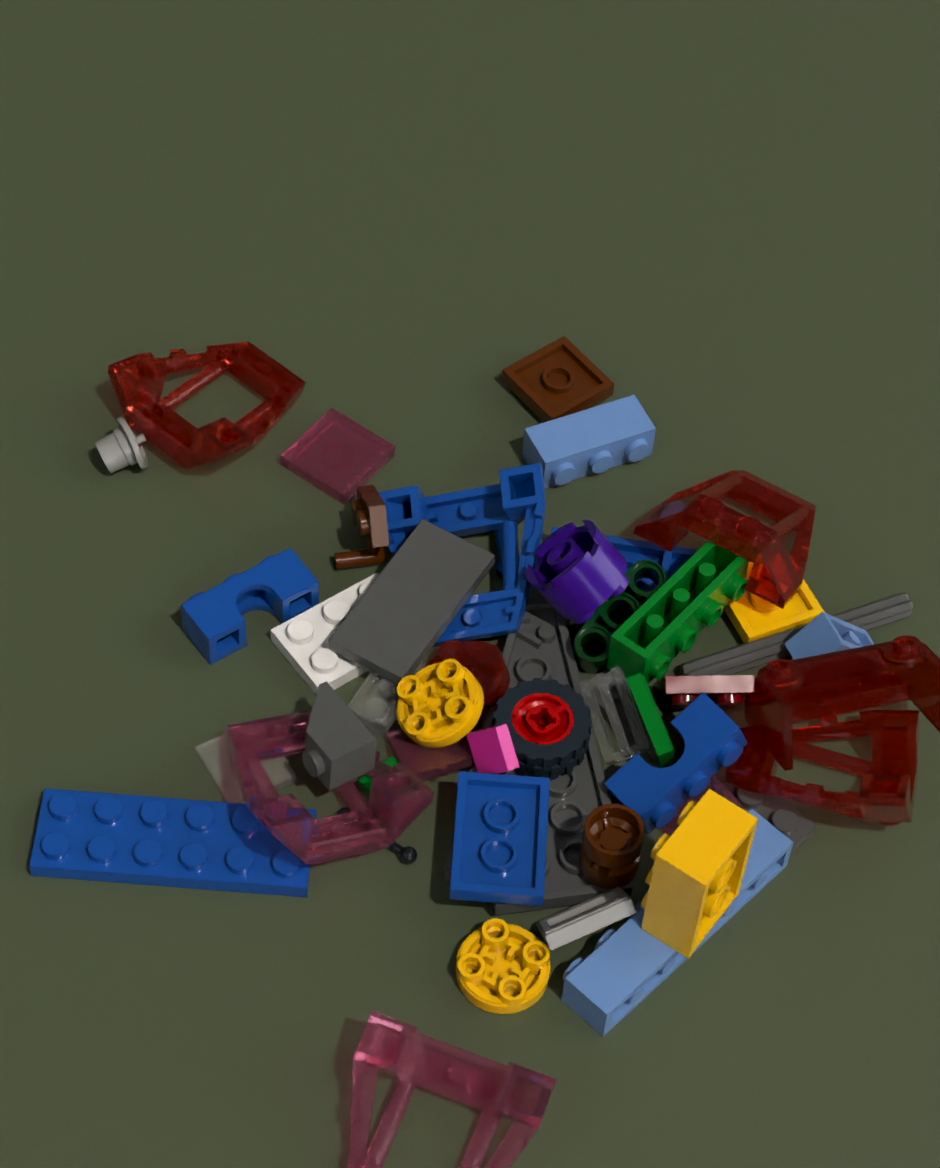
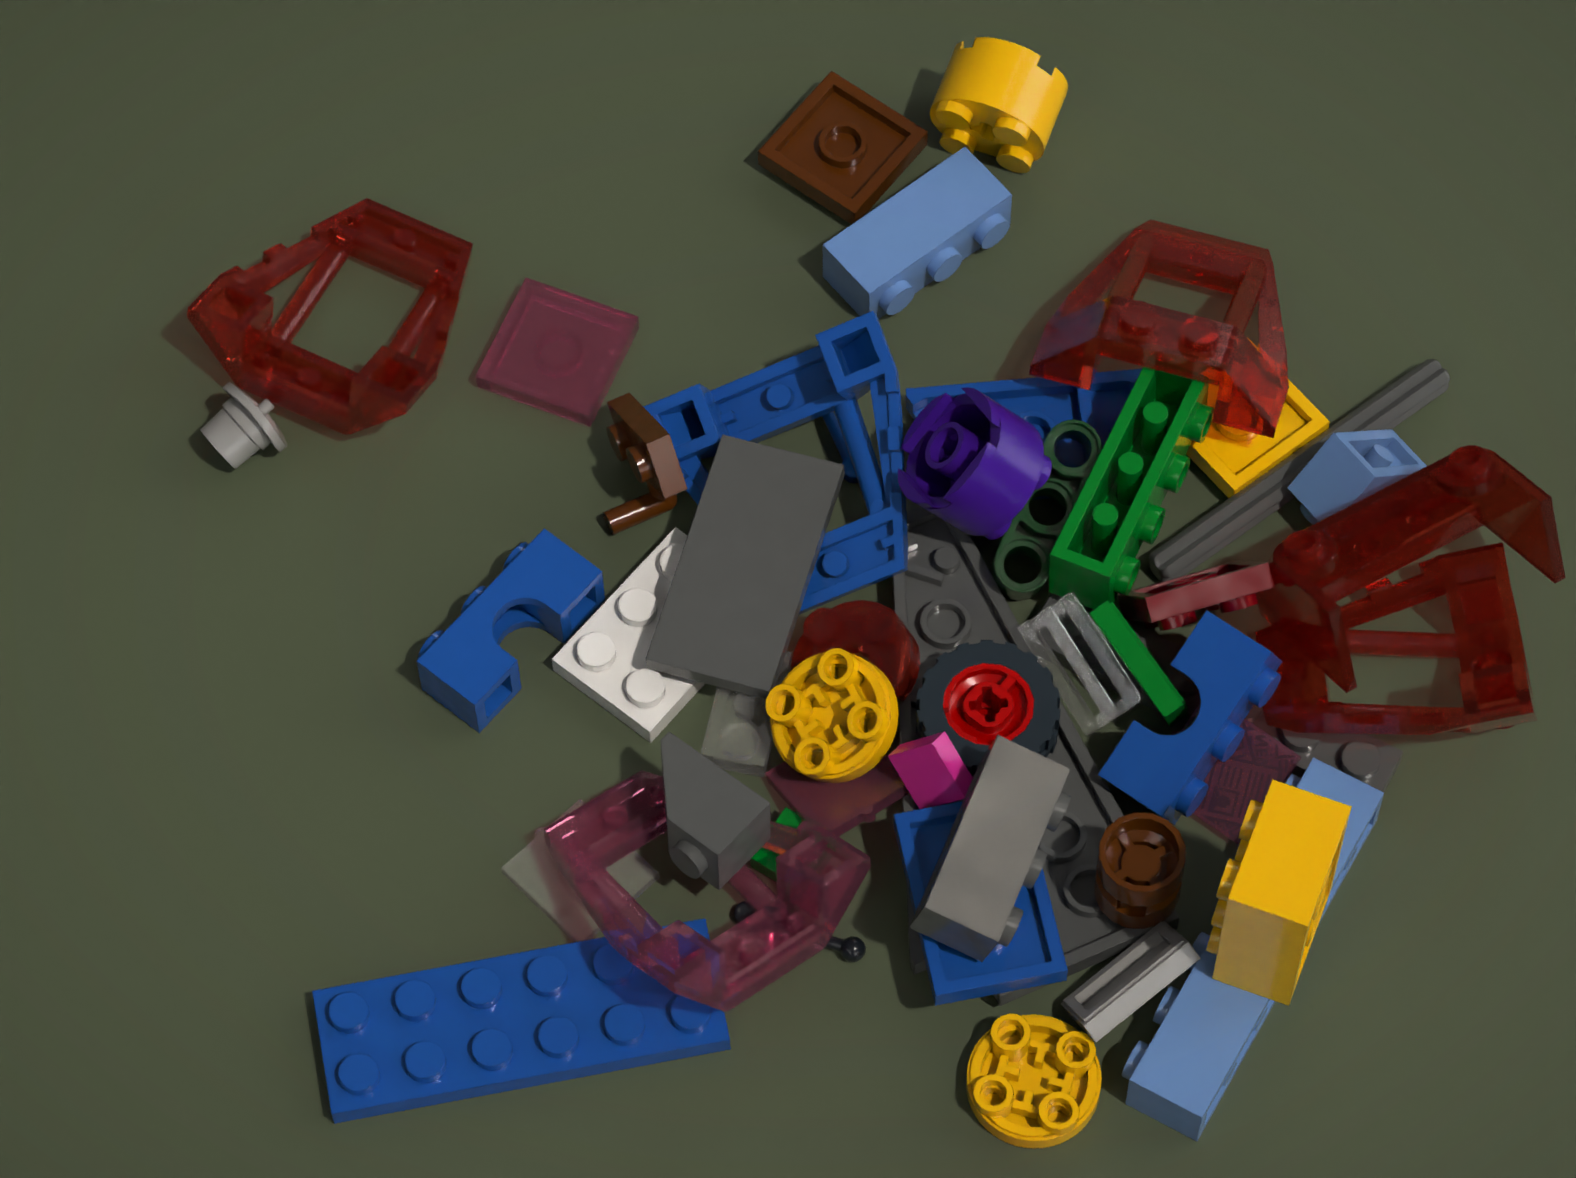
camera: 10 degrees left, 10 degrees up
(514, 804) = (993, 850): none -> dark grey brick
(664, 375) = (998, 102): none -> yellow brick

